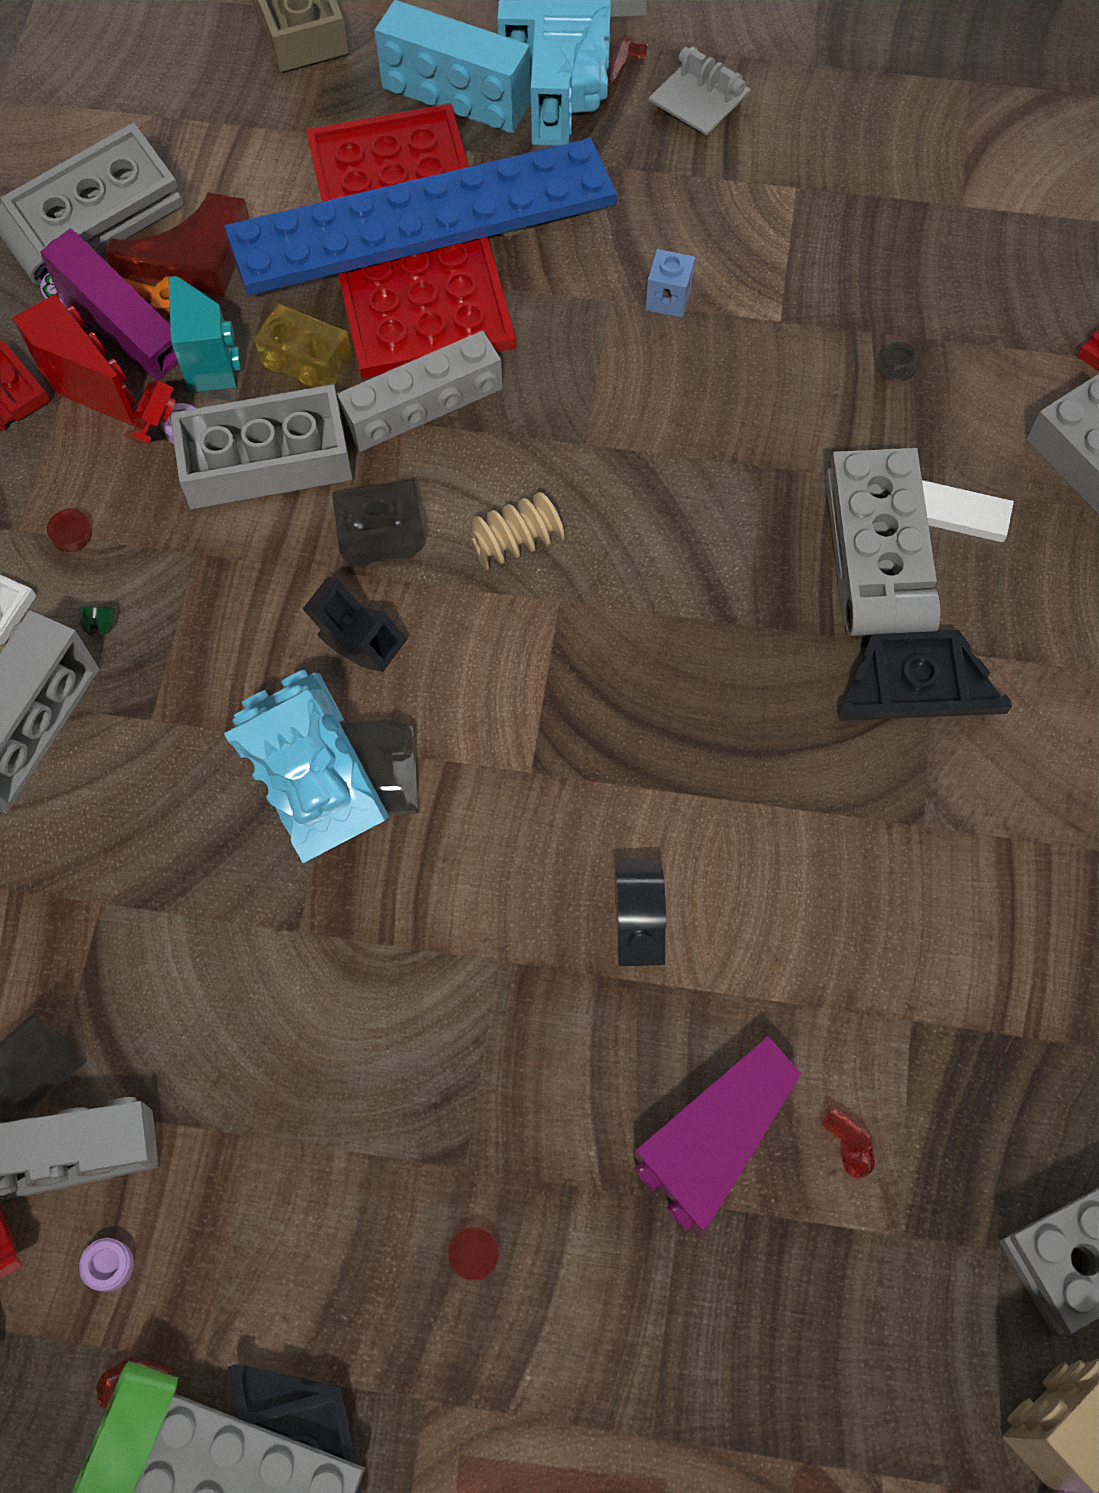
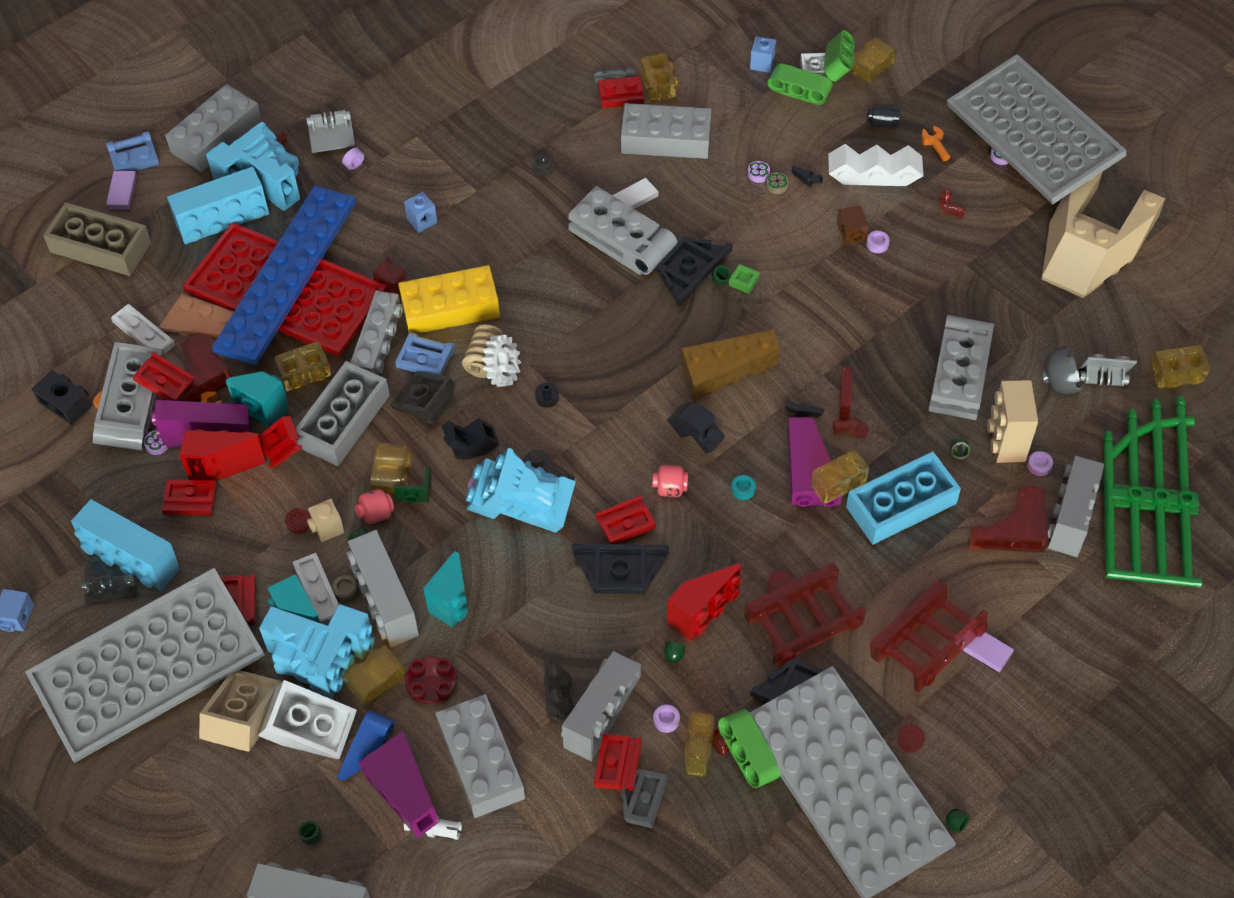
camera: 50 degrees left, 10 degrees down
(36, 139) = (62, 396): none -> black brick
(69, 1364) = (698, 744): none -> clear yellow brick
(76, 798) = (446, 592): none -> teal slope
(83, 560) = (325, 520): none -> tan brick
(126, 213) = (163, 378): none -> red plate
(153, 599) = (374, 506): none -> coral head
(211, 147) = (142, 329): none -> white tile
(225, 1186) = (674, 651): none -> dark green hinge
(227, 639) = (415, 493): none -> dark green bracket
(229, 571) = (390, 467): none -> clear yellow brick
(275, 177) = (195, 316): none -> nougat wing
(308, 1160) = (702, 600): none -> red slope
(312, 994) = (620, 566): none -> black wing
(396, 939) = (625, 520): none -> red plate
(439, 476) = (423, 360): none -> medium blue plate
(481, 1309) = (804, 589): none -> clear red fence
(509, 566) = (501, 360): none -> white gear
(514, 948) = (670, 480): none -> coral head
(524, 667) = (547, 395): none -> black tile
(534, 333) = (390, 276): none -> clear red brick
(561, 426) = (449, 300): none -> yellow brick
(600, 1061) = (743, 487): none -> teal tile
(680, 146) = (353, 158): none -> lavender tile
(714, 1209) = (839, 476): none -> clear yellow brick
(783, 1338) = (903, 497): none -> medium azure brick
(796, 864) = (727, 361): none -> pearl gold wedge
(818, 1043) = (803, 409): none -> black bar
(902, 1085) = (845, 393): none -> clear red tile
(951, 733) = (721, 275): none -> dark green hinge
(960, 1363) = (965, 448): none -> dark green hinge
(970, 770) = (744, 279): none -> bright green plate

